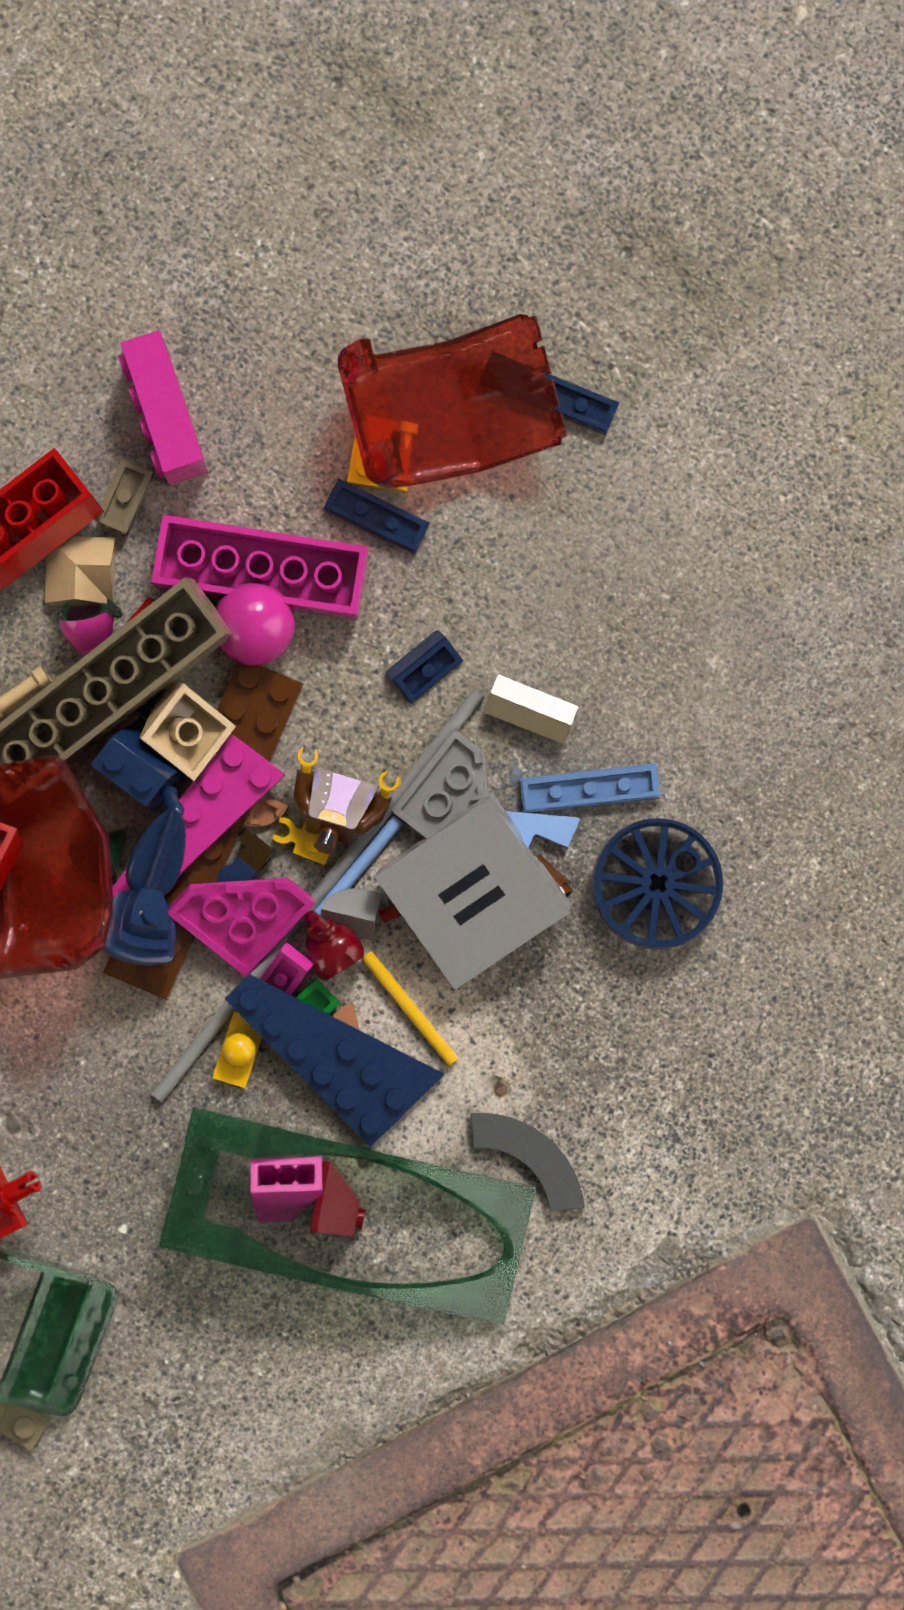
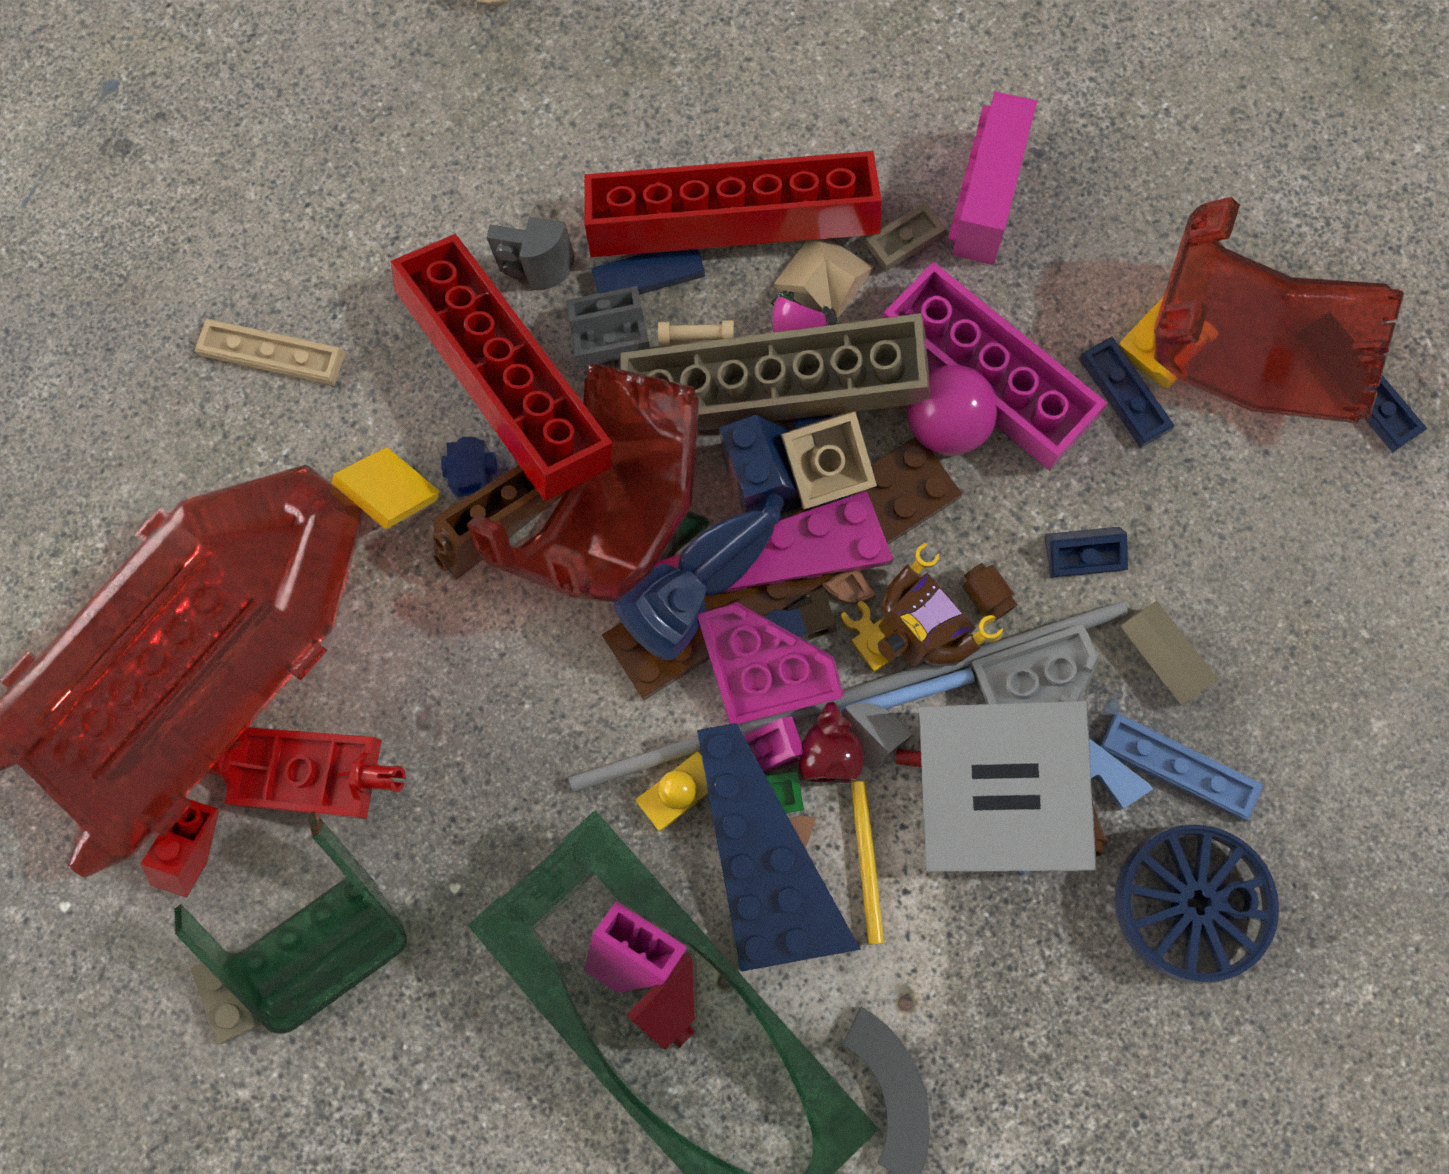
camera: 40 degrees right, 10 degrees down
(371, 748) = (989, 591): none -> reddish brown brick

